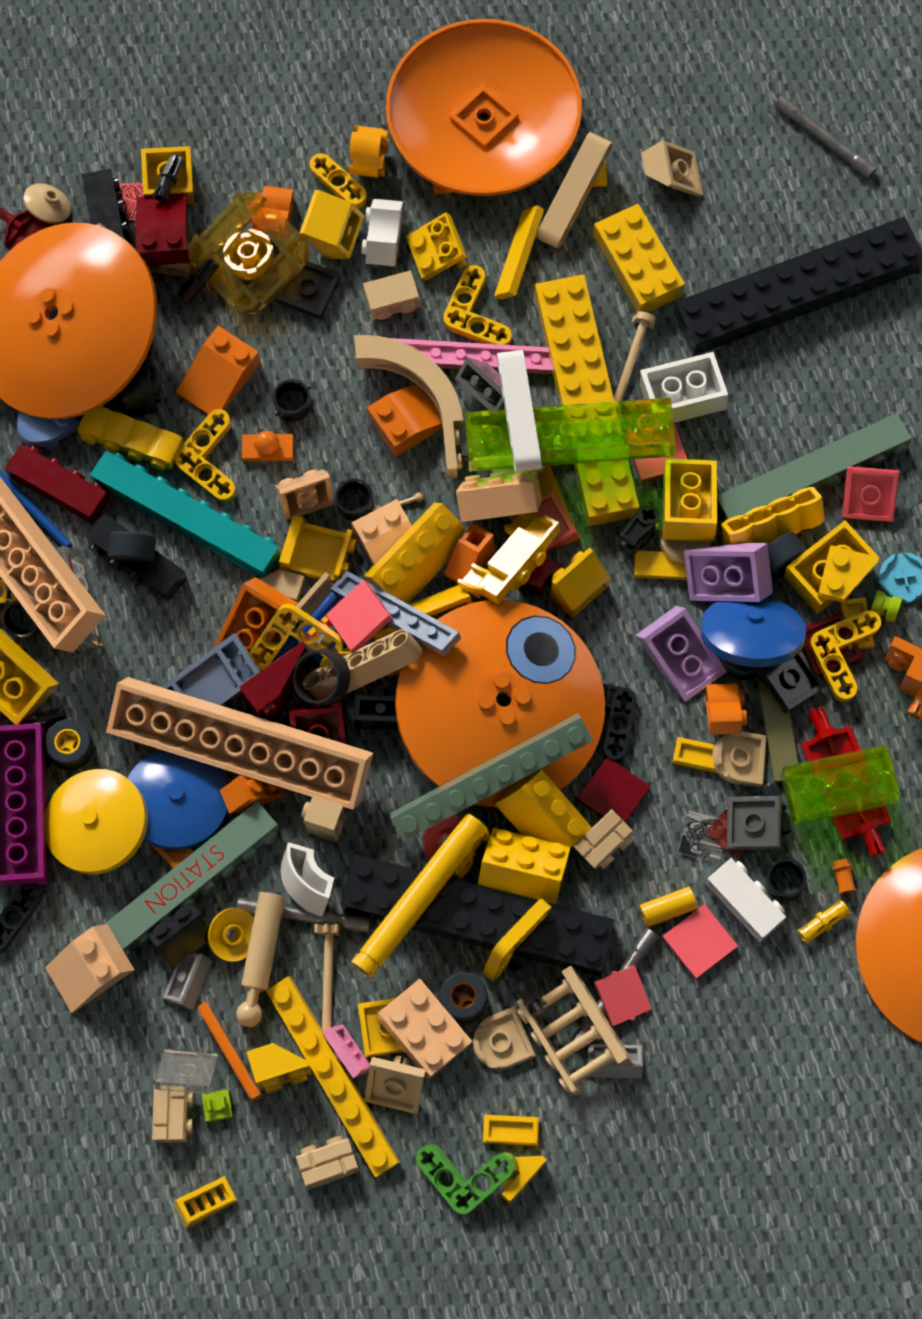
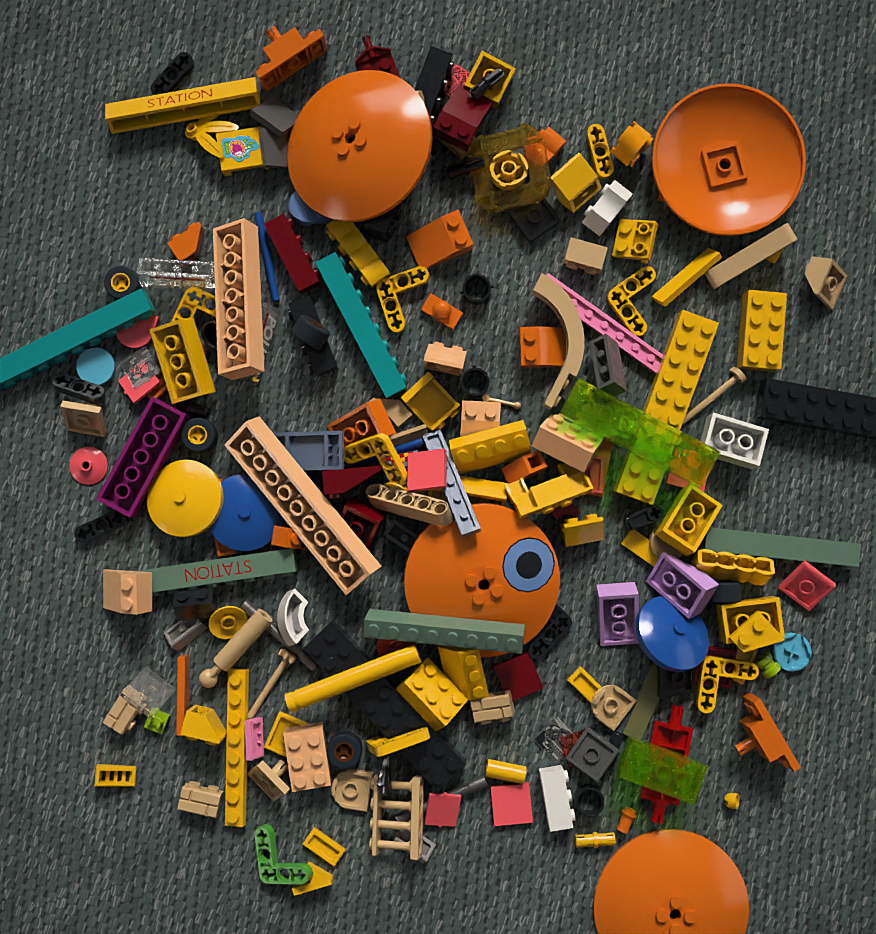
camera: 25 degrees right, 15 degrees up
(47, 203) = (395, 55): tan dish -> none
(324, 818) = (325, 586): tan brick -> none
(342, 682) = (393, 496): black tyre -> none
(519, 411) = (614, 401): white beam -> none
(724, 709) = (621, 670): orange brick -> none

